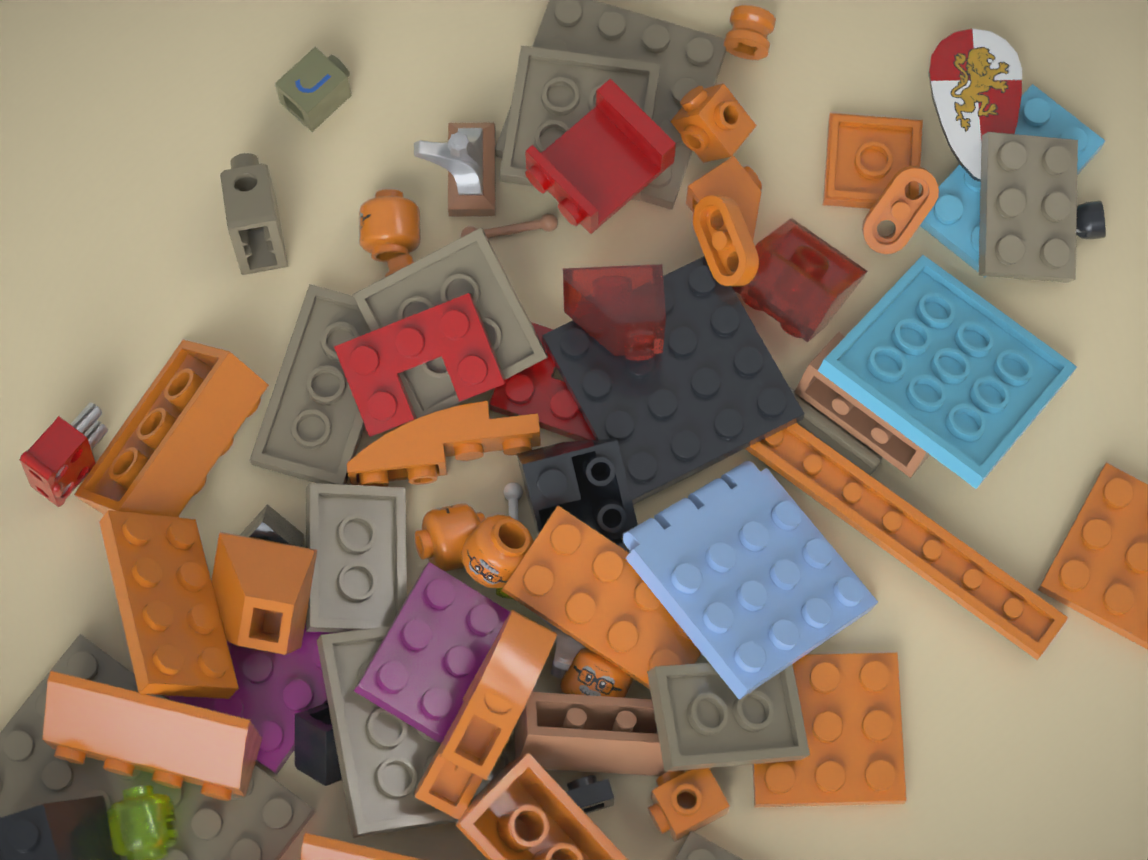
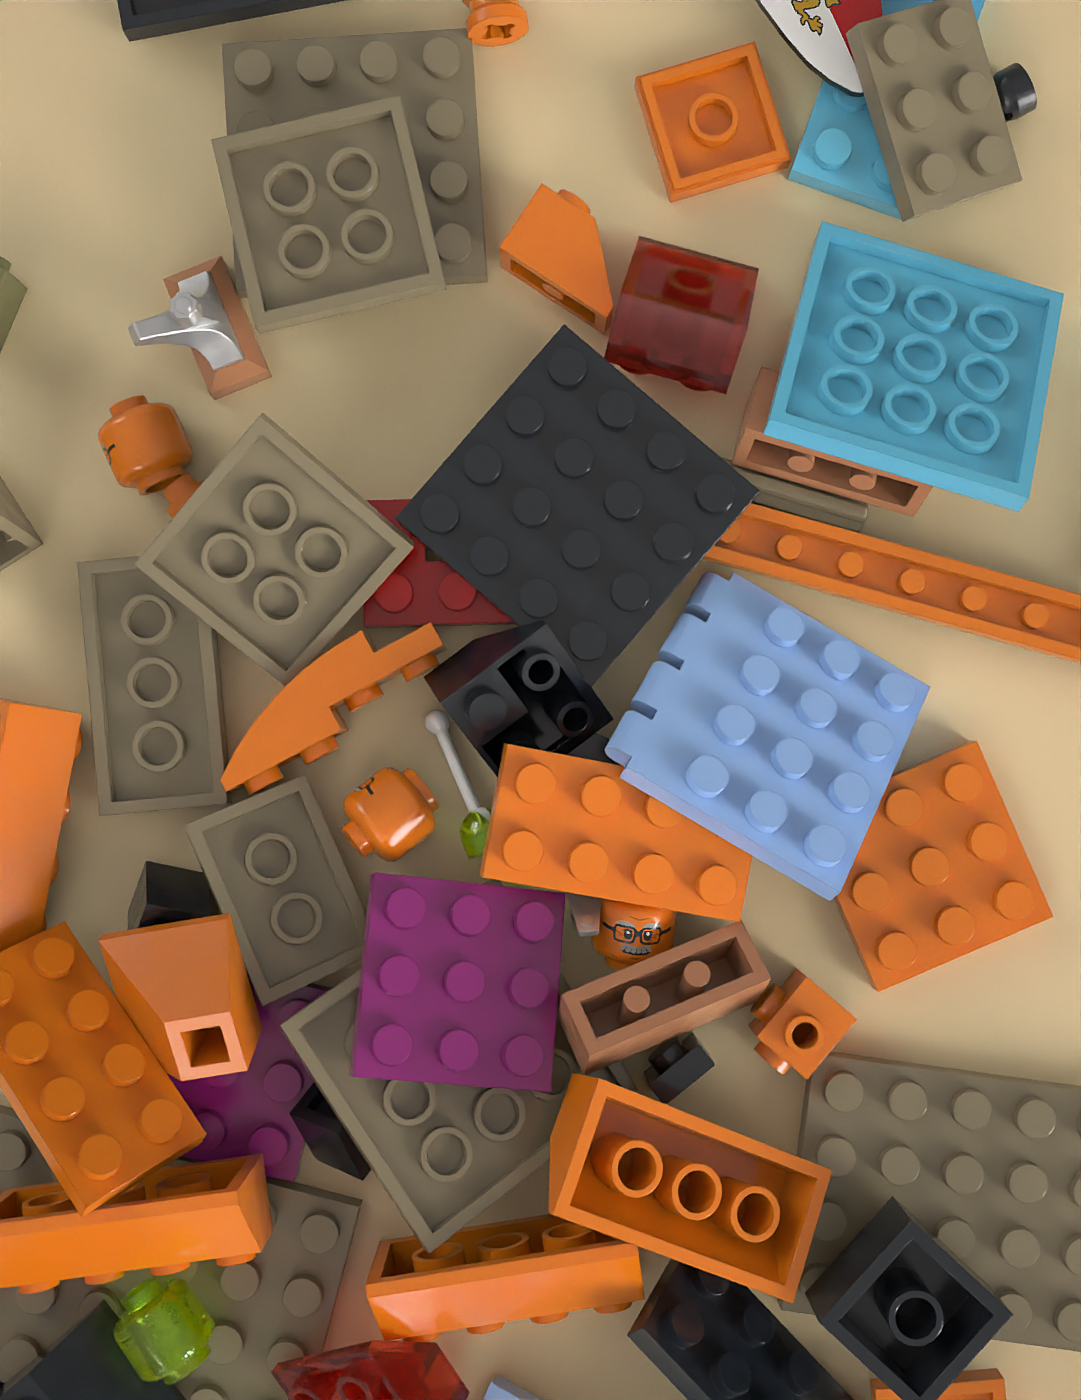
camera: 20 degrees left, 15 degrees up
(444, 331) = (271, 566): red plate -> none
(487, 715) = (531, 1046): orange slope -> none
(495, 550) = (452, 823): orange head -> none
(548, 223) = (340, 361): nougat hinge -> none
(601, 159) = (377, 256): red panel -> none
(619, 307) = (485, 452): clear red slope -> none
(709, 727) = (802, 946): dark tan plate -> none
(712, 122) = (497, 148): orange brick -> none
(727, 245) = (578, 308): orange plate -> none
(902, 210) = (778, 173): orange plate -> none

